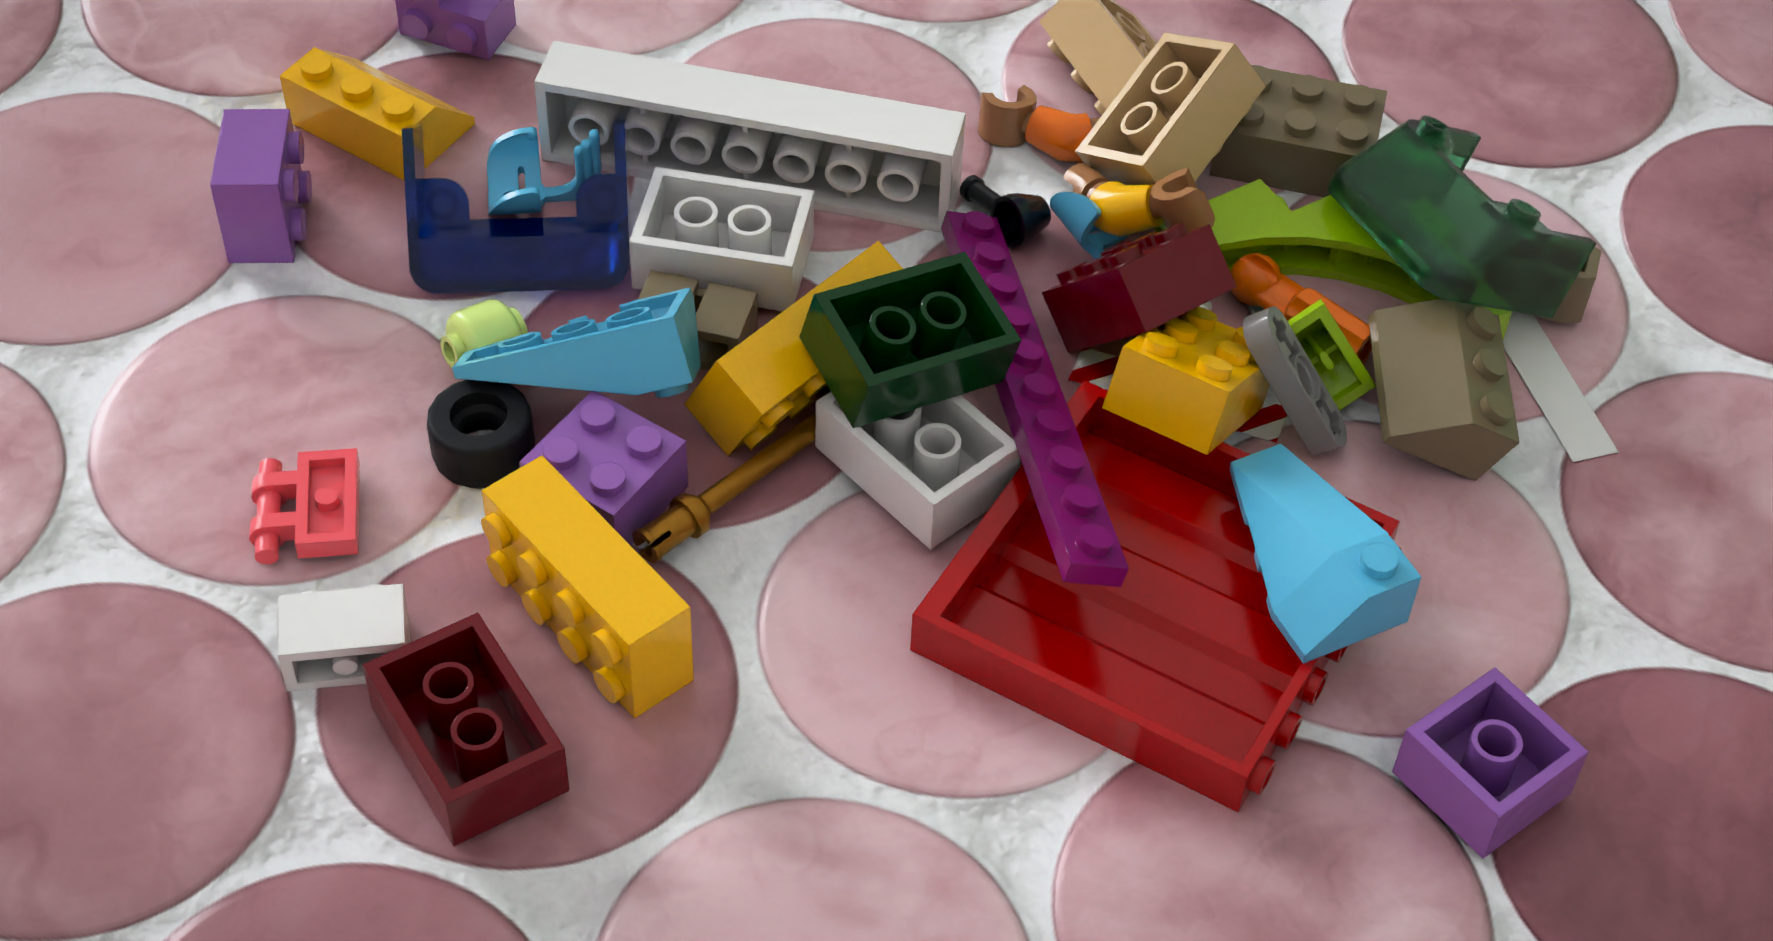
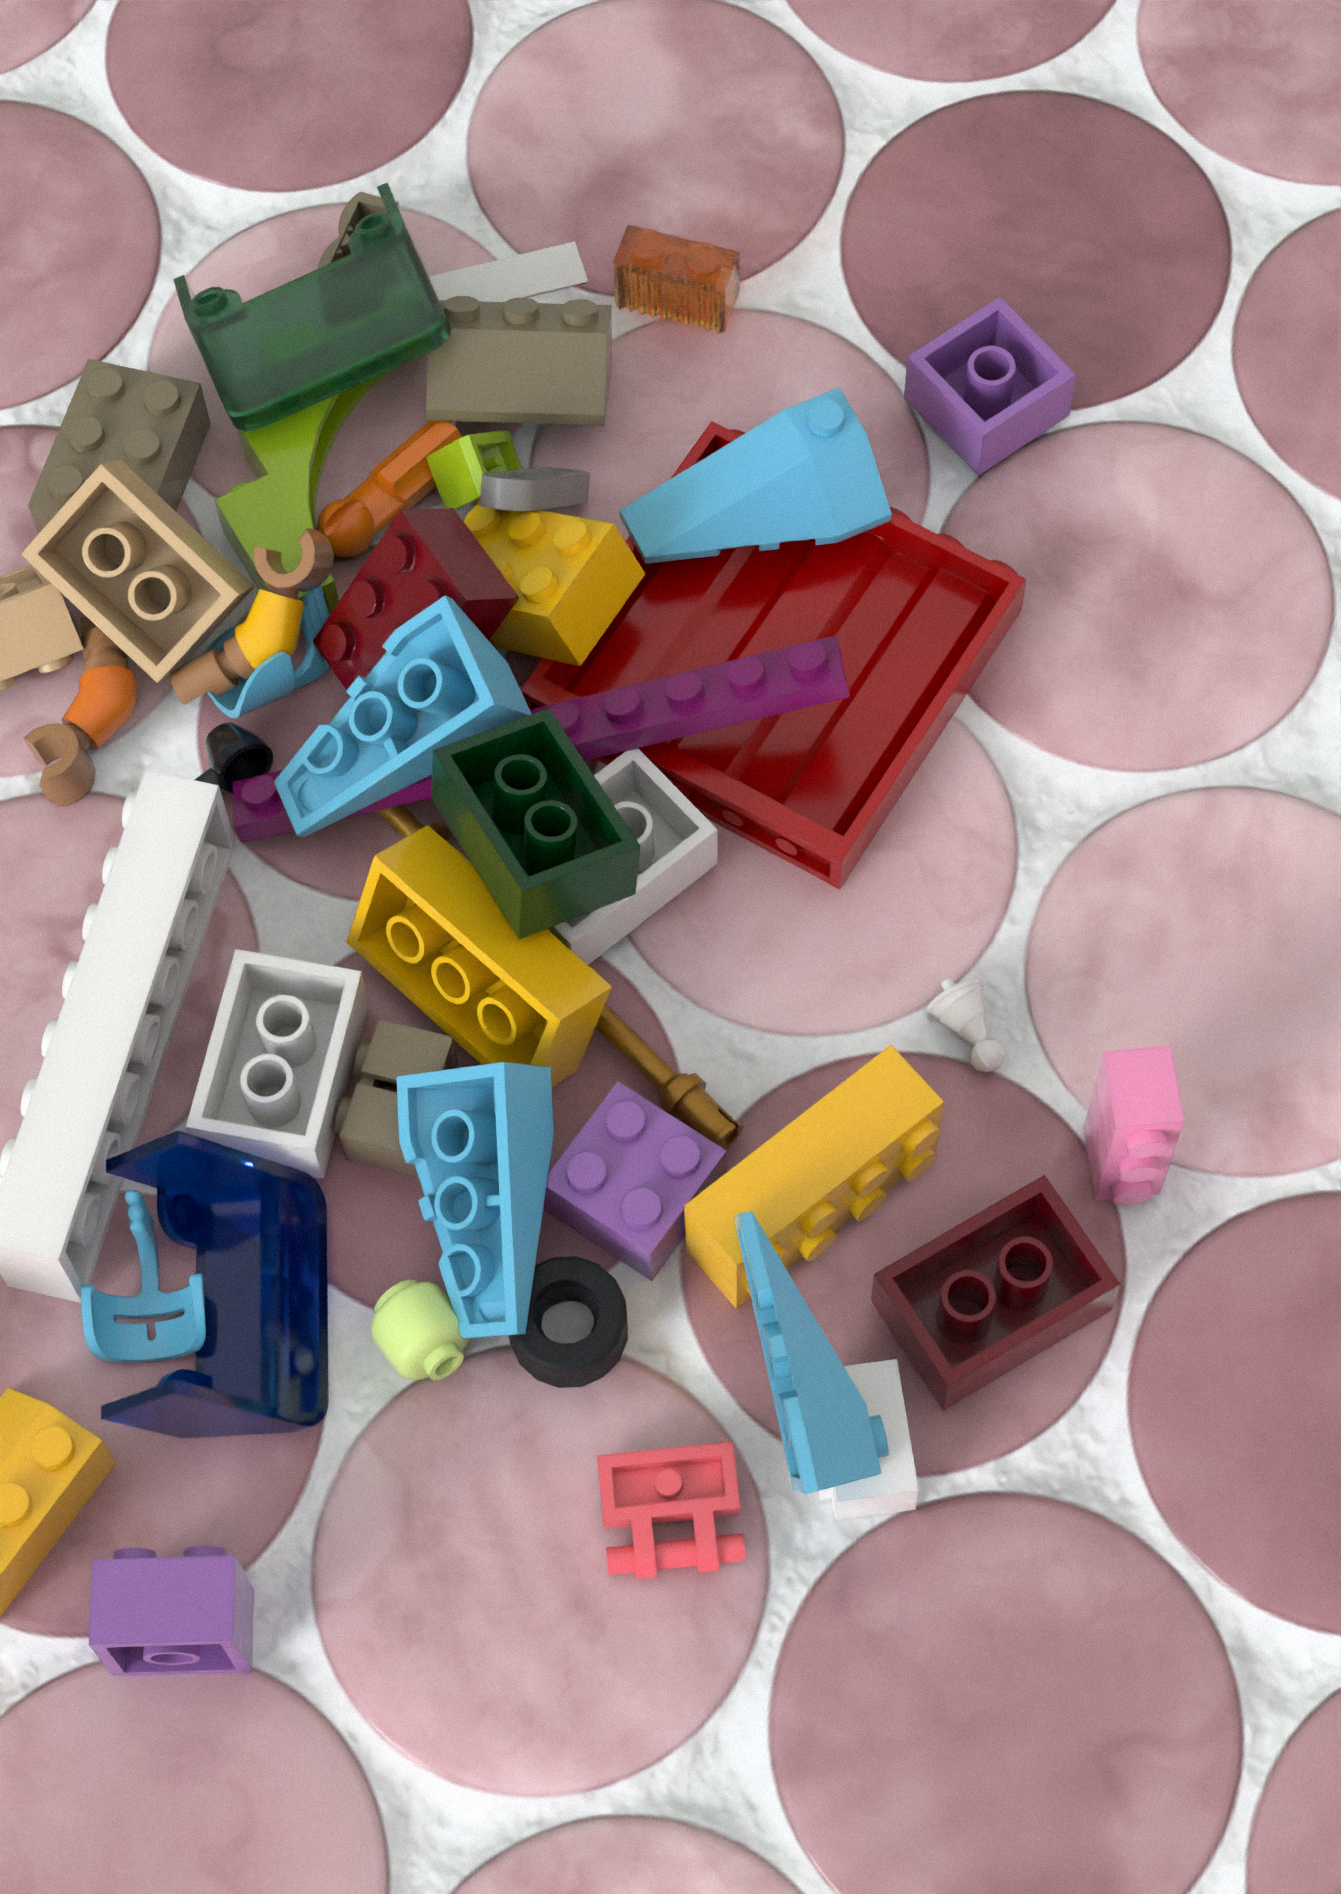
camera: 85 degrees left, 15 degrees up
(353, 534) = (815, 1400): none -> medium azure wedge
(603, 816) = (1133, 1124): none -> bright pink brick
(768, 733) = (963, 1011): none -> white piece
(1034, 276) = (423, 694): none -> medium azure wedge
(1576, 510) = (676, 278): none -> clear orange brick

